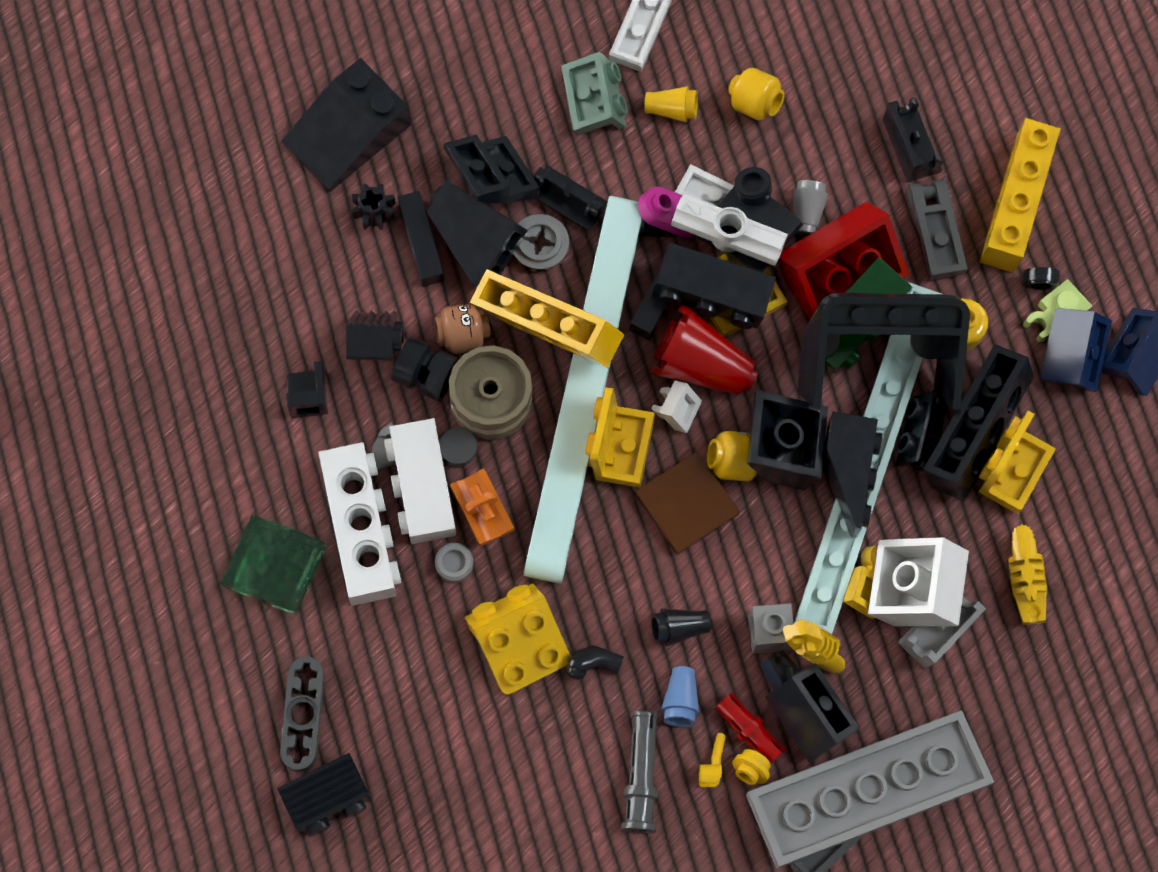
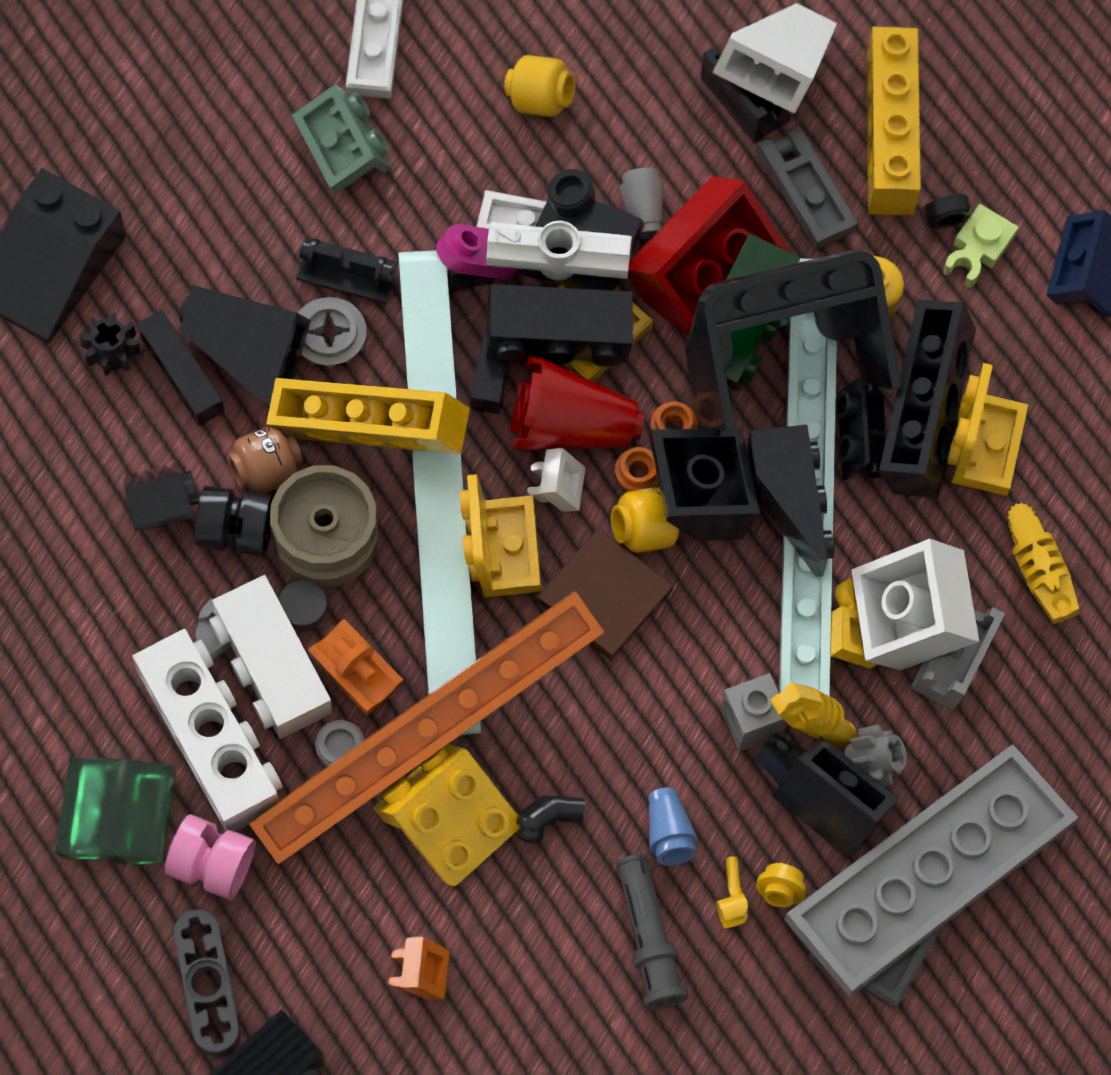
camera: 15 degrees left, 5 degrees down
(307, 393) = (95, 591): black panel -> none
(331, 620) = (211, 857): none -> bright pink wheel
(464, 751) = (423, 968): none -> orange tile
(492, 169) = (246, 259): black slope -> none
(520, 570) = (426, 727): none -> orange plate
(673, 103) = (442, 124): yellow cone -> none
(677, 625) = (638, 742): black cone -> none
(738, 404) = (633, 458): none -> orange plate
(749, 728) = (763, 839): red pin -> none
(779, 376) = (673, 412): none -> orange plate
(855, 688) = (878, 753): none -> light grey gear
(945, 120) = (777, 55): none -> white slope
(1076, 348) = (1015, 281): dark blue panel -> none

